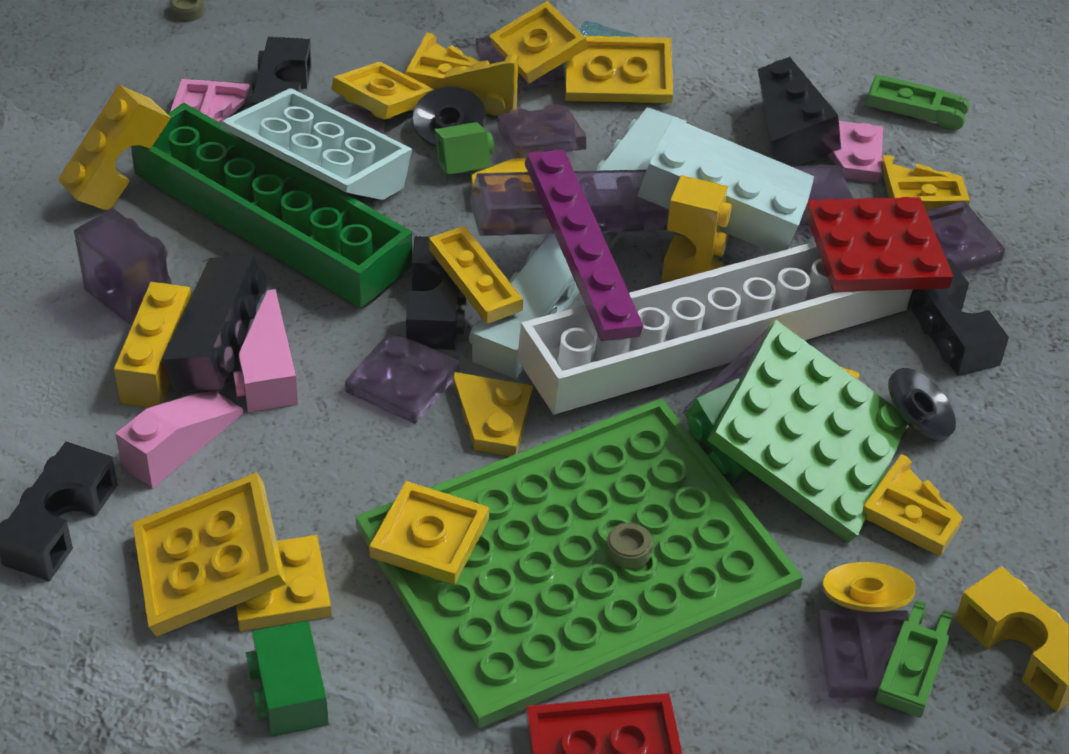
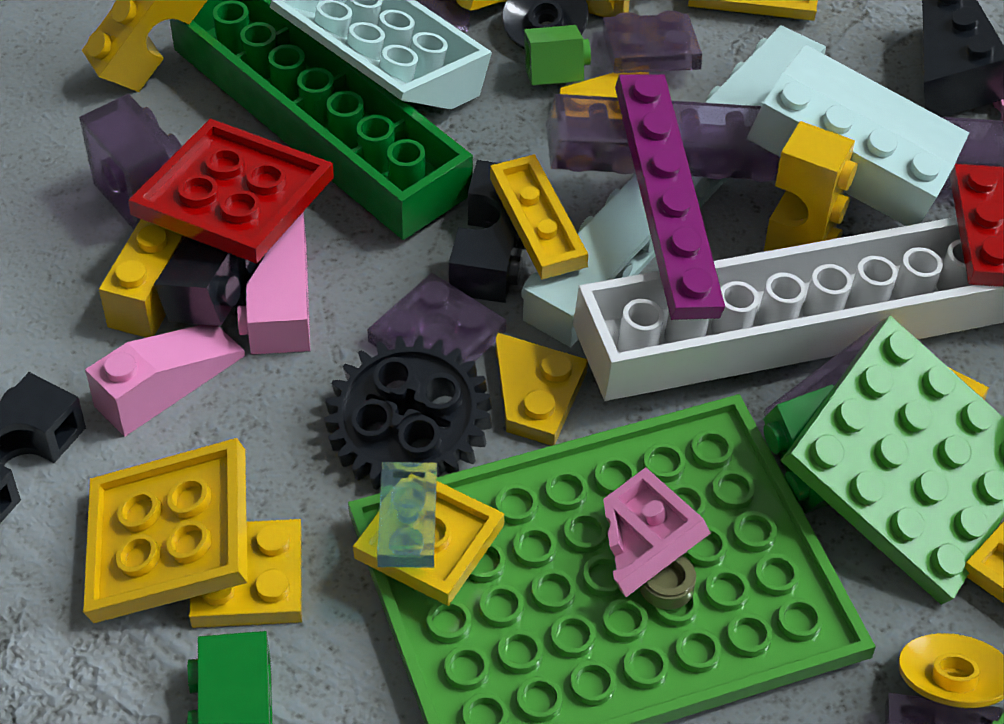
camera: 10 degrees right, 5 degrees up
(215, 276) = (232, 190): none -> red plate
(391, 440) = (408, 409): none -> black gear
(412, 514) = (407, 515): none -> clear light blue plate
(609, 505) = (648, 529): none -> bright pink wing

